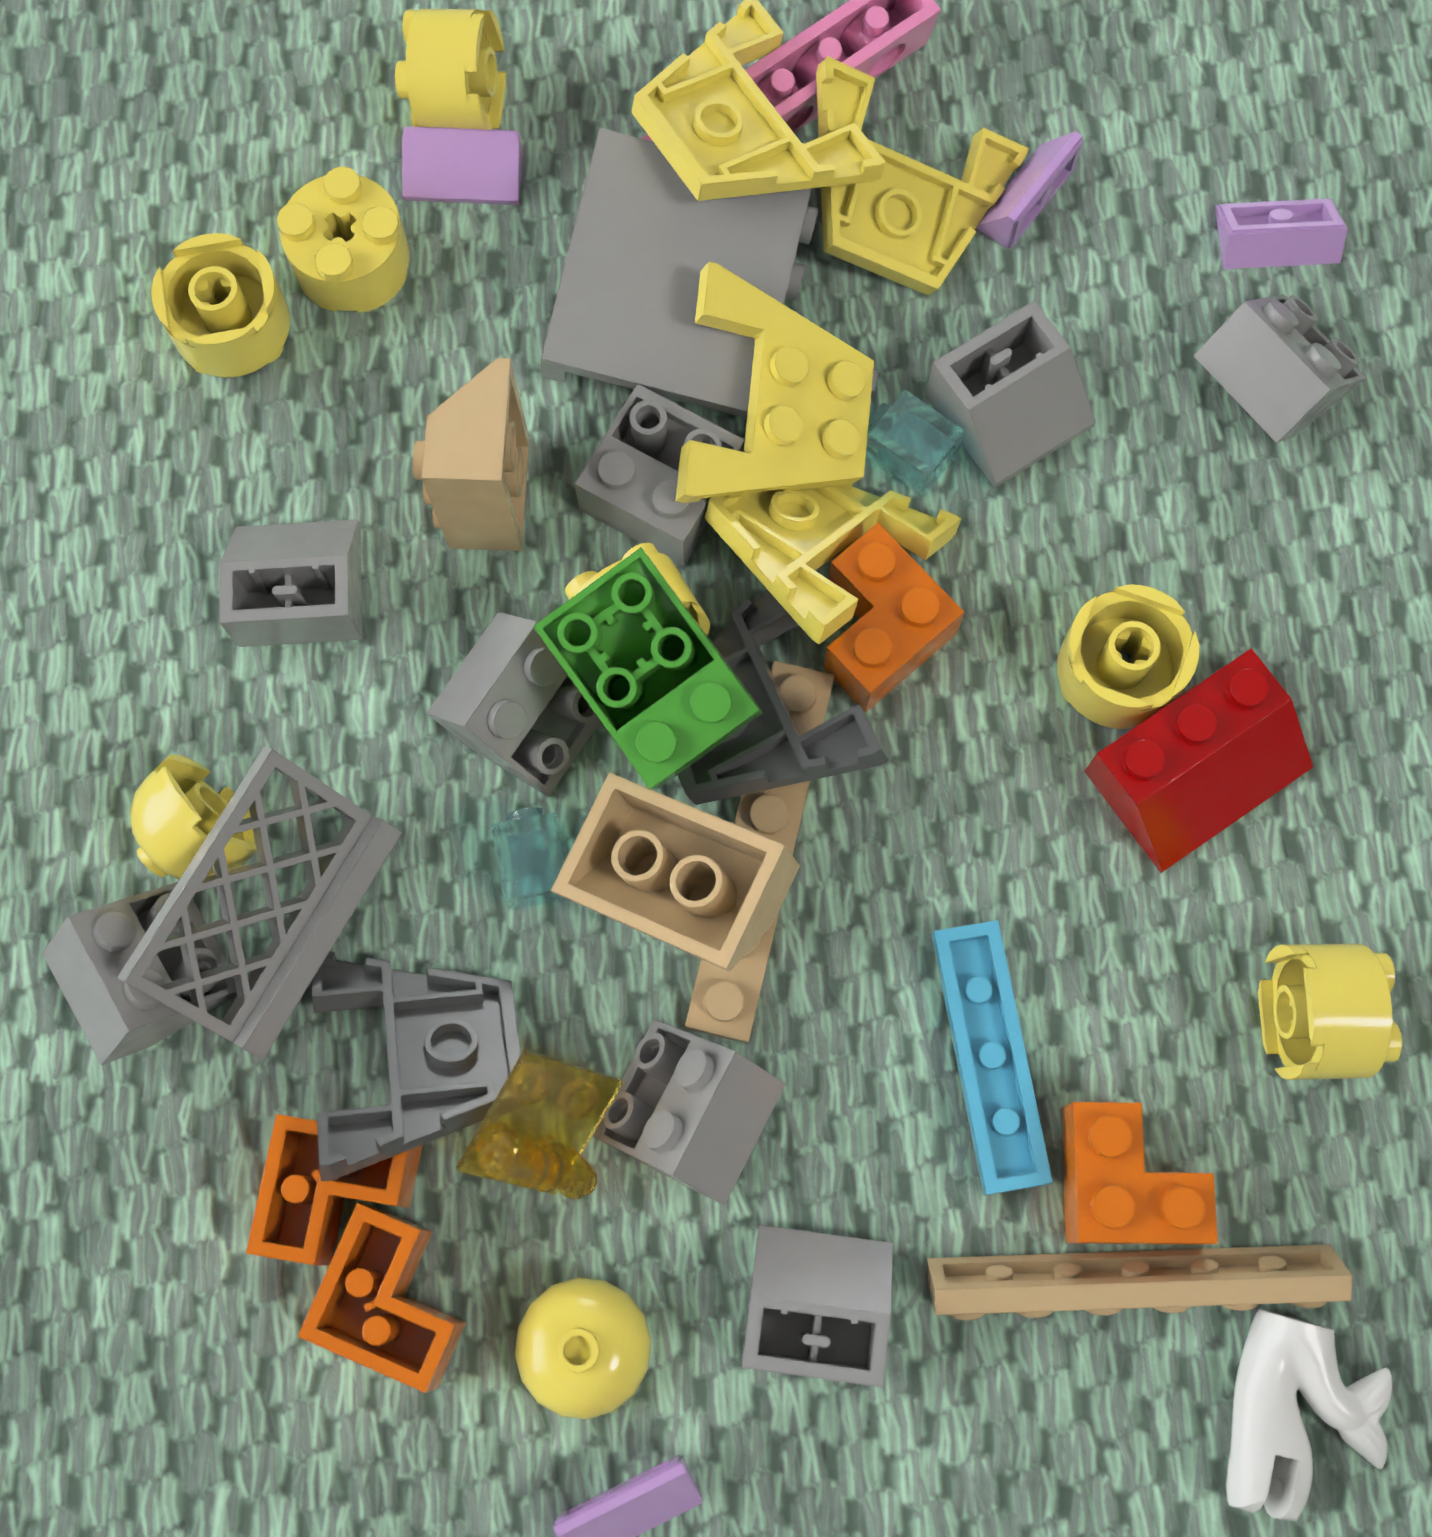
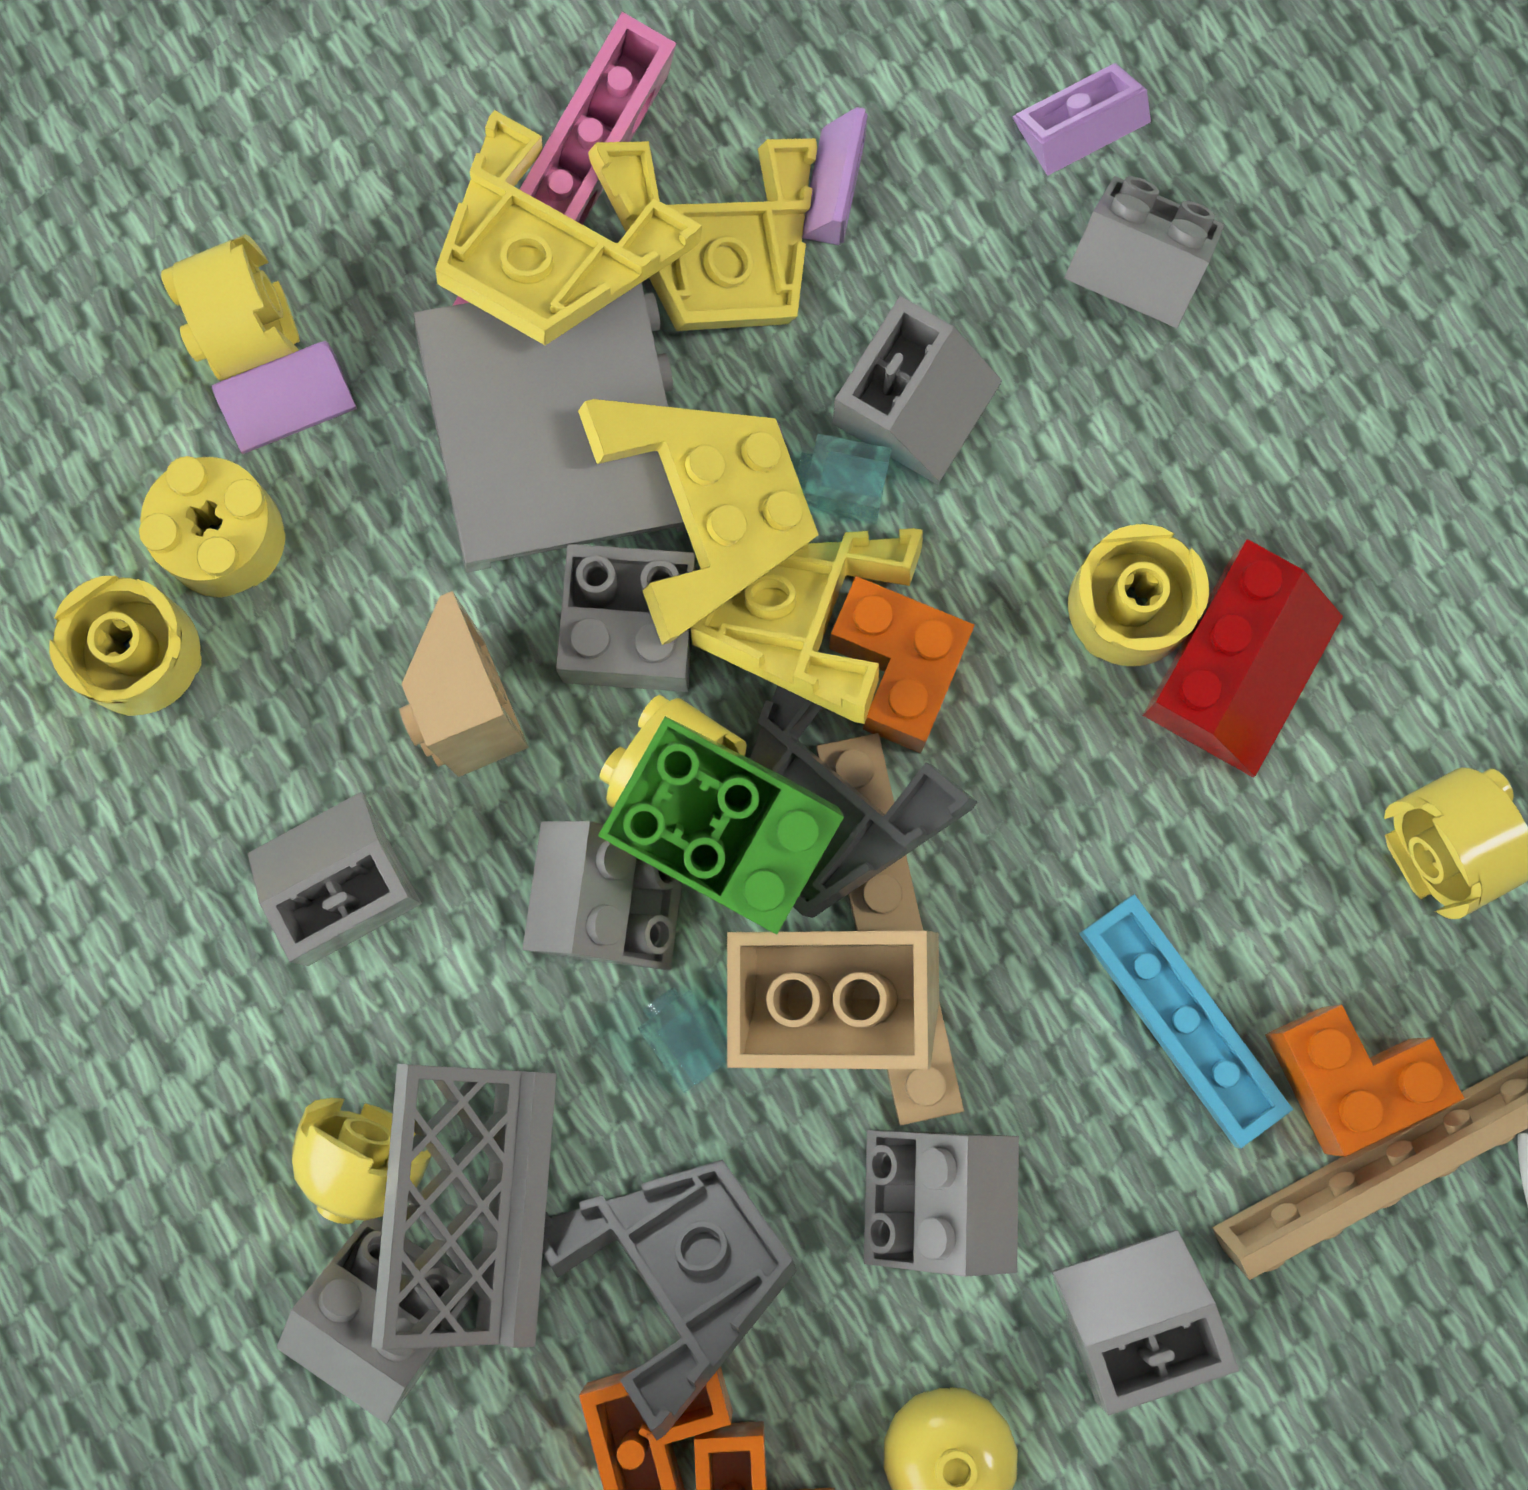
camera: 25 degrees left, 5 degrees up
(542, 1127) = (821, 1288): clear yellow hinge -> none

